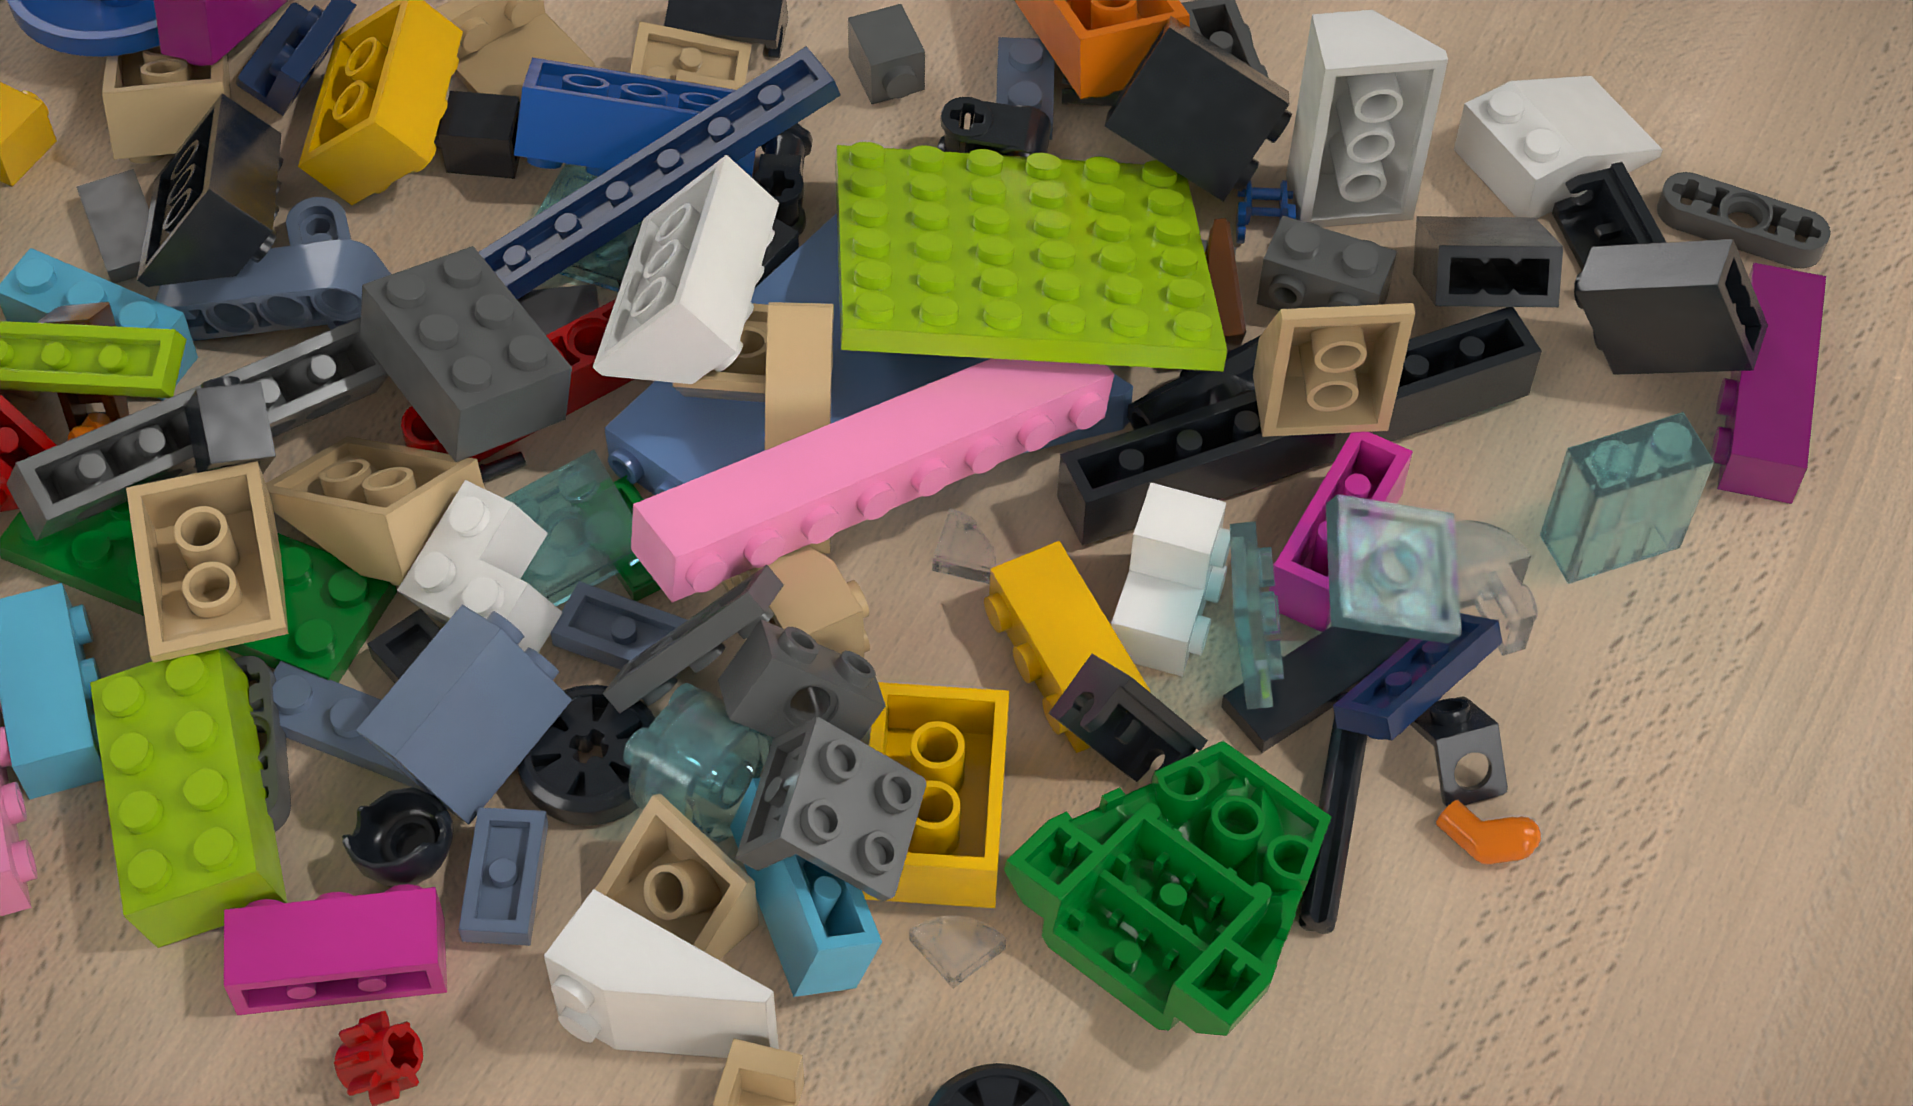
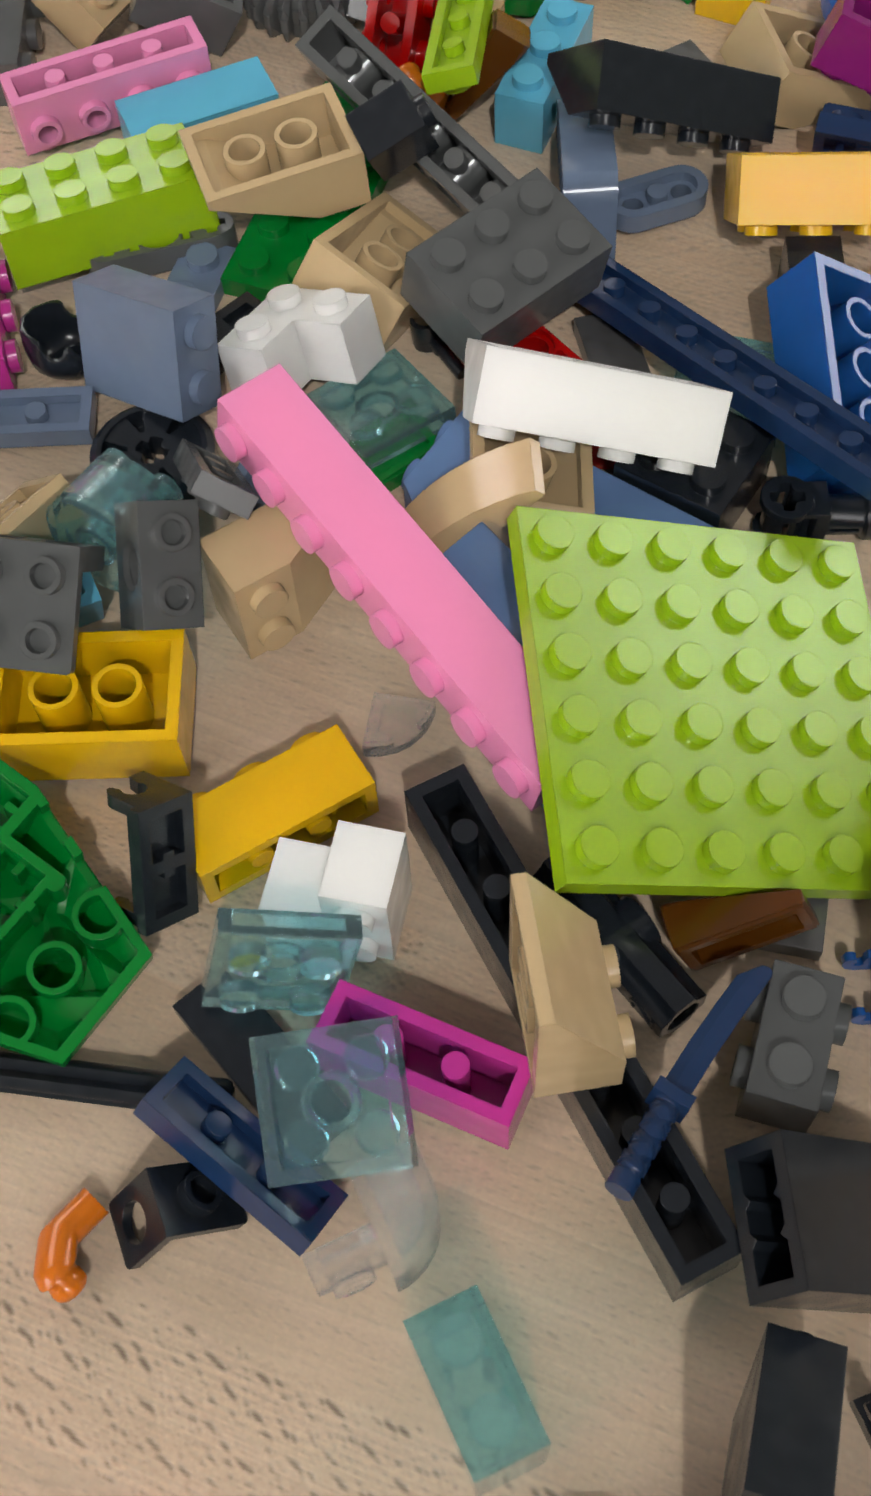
camera: 90 degrees right, 5 degrees up
(1424, 341) = (672, 1096): none -> dark blue sword

